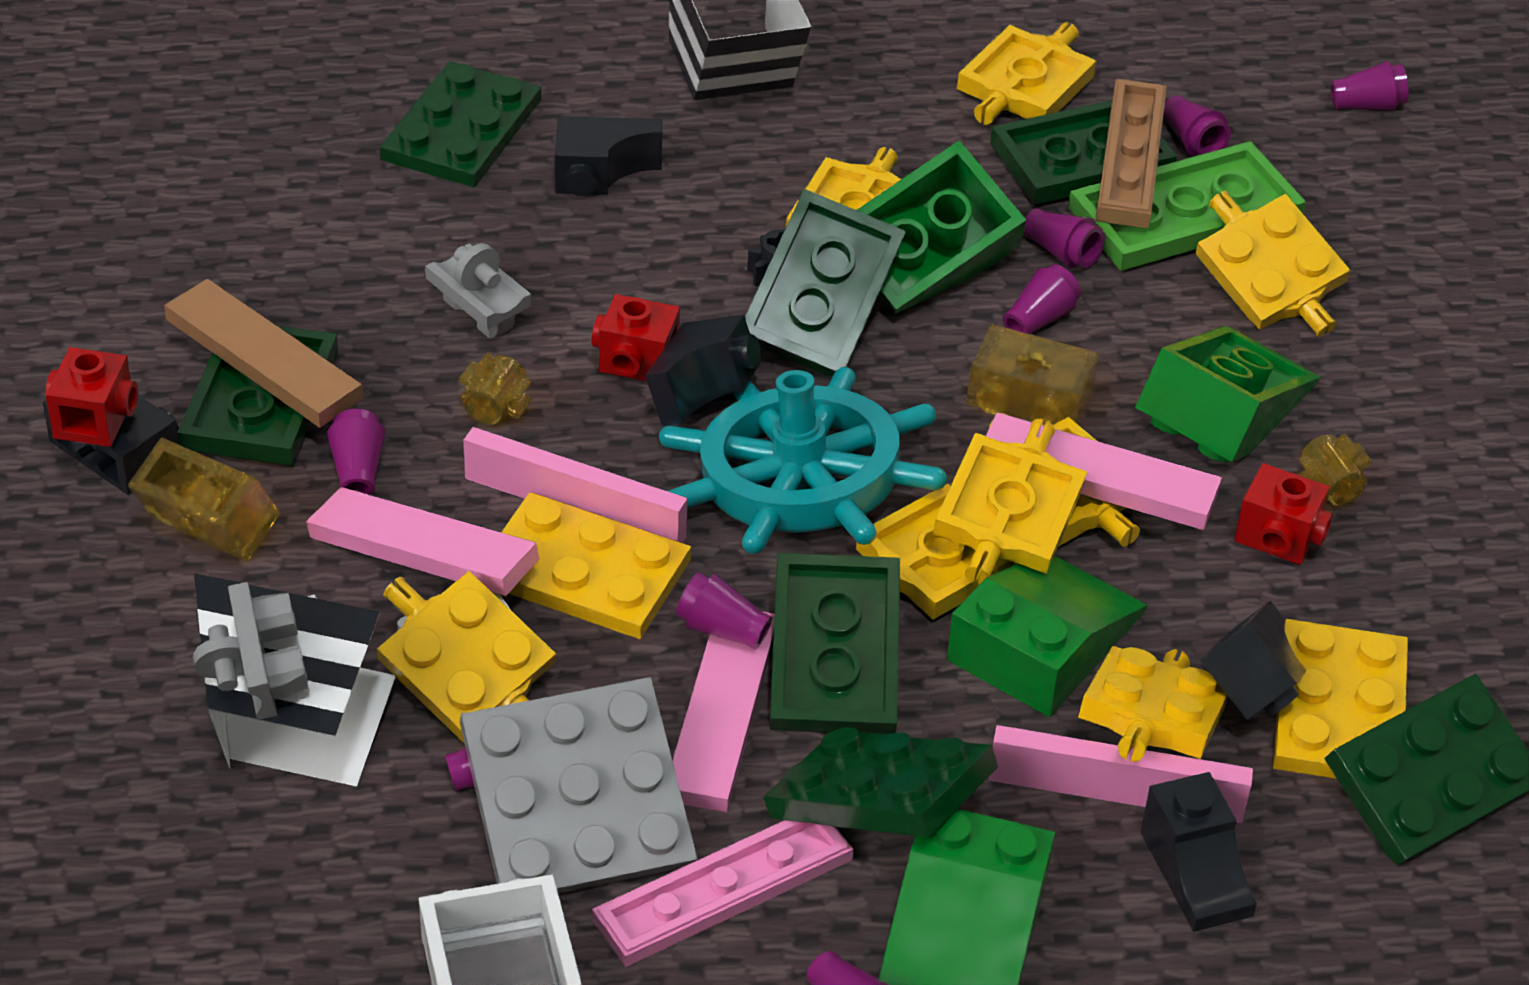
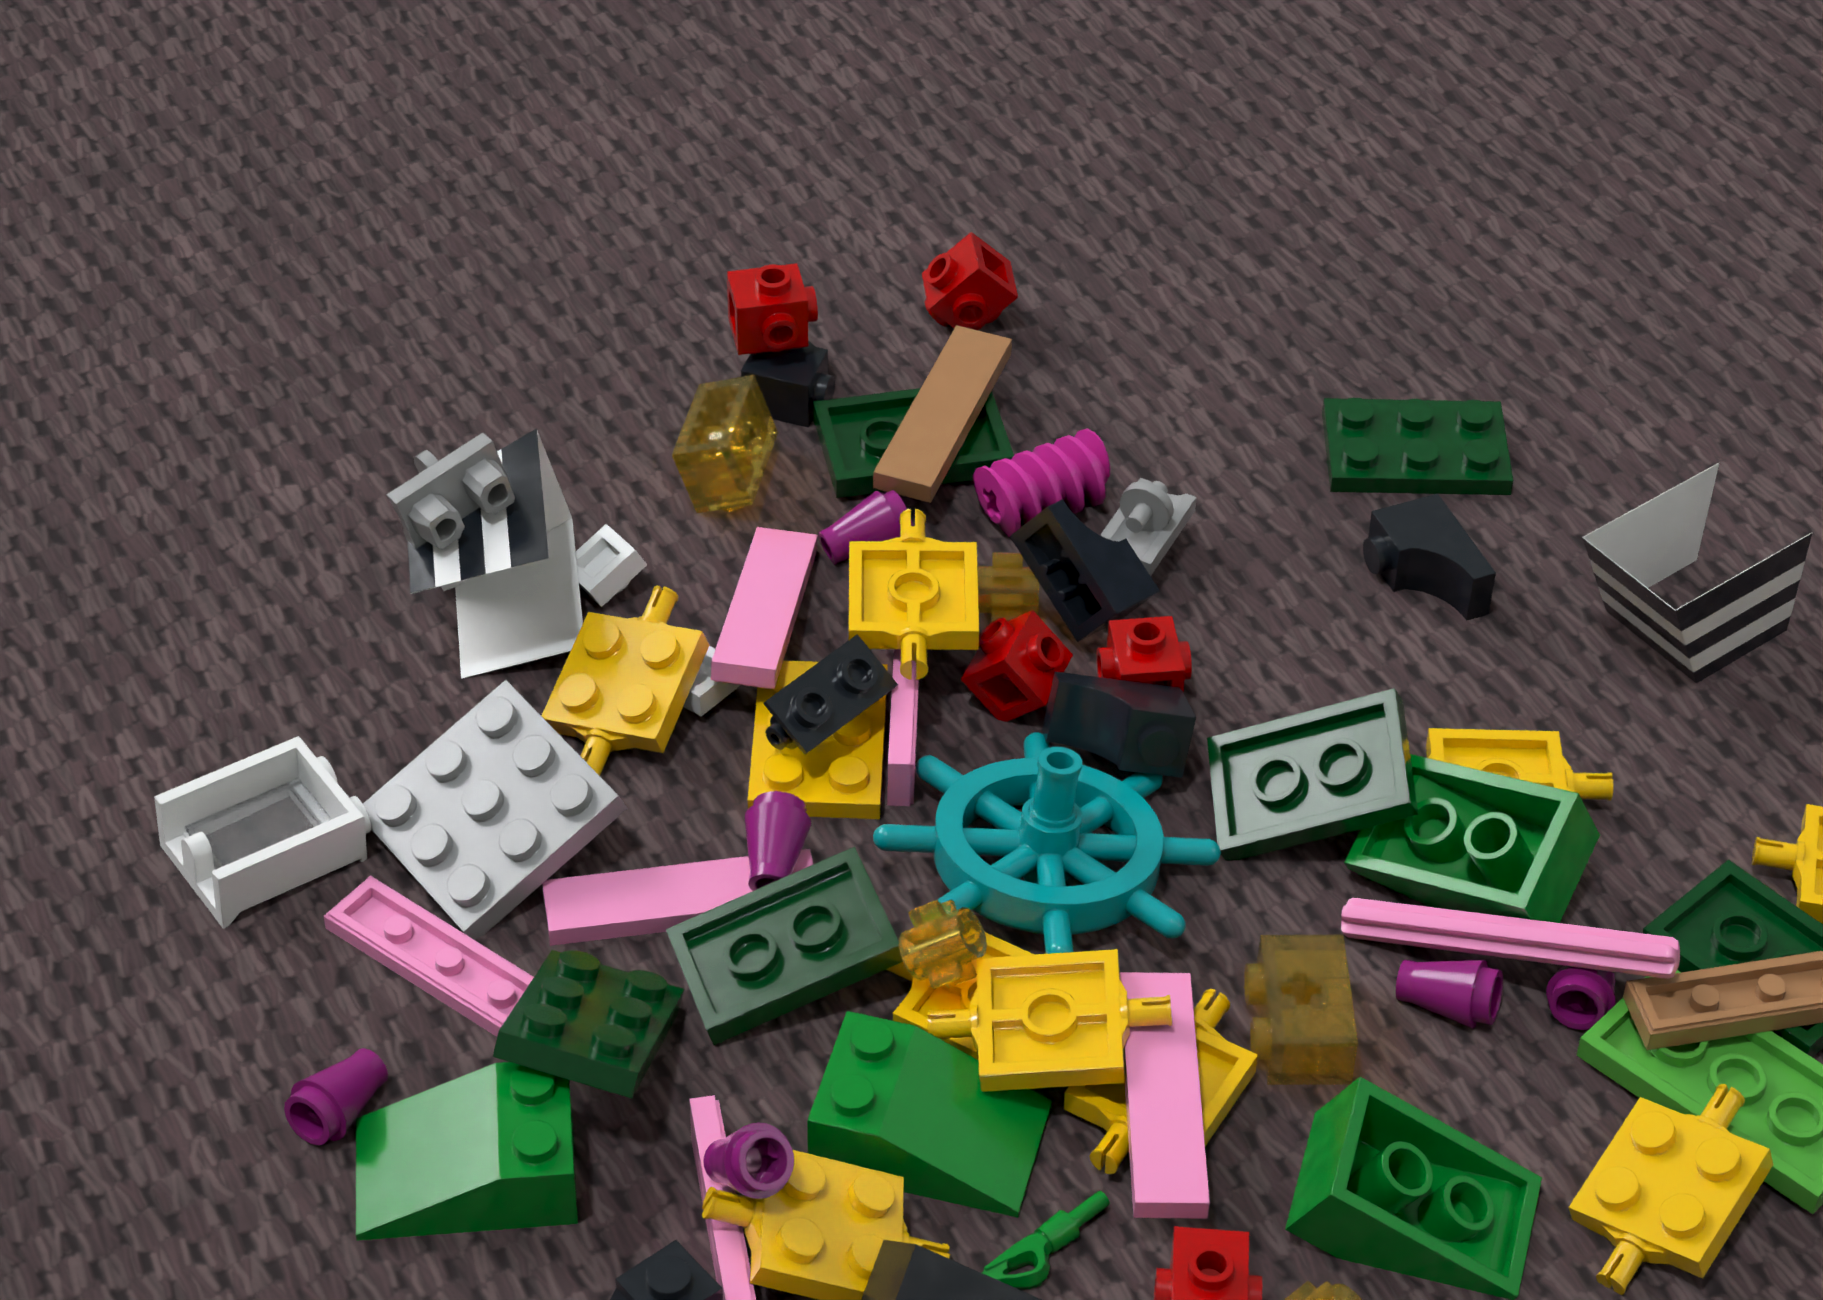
camera: 70 degrees right, 0 degrees up
(103, 288) = (969, 284): none -> red brick
(383, 324) = (1037, 479): none -> dark pink piece
(509, 426) = (914, 594): none -> yellow plate
(528, 329) = (1083, 571): none -> black arch
(591, 522) = (827, 697): none -> black hinge
(594, 409) = (1015, 665): none -> red brick
(913, 532) = (942, 943): none -> clear yellow gear
(1025, 249) = (1511, 938): none -> bright pink axle
(1117, 701) = (751, 1160): none -> magenta cone
(1186, 603) = (1046, 1240): none -> green hand

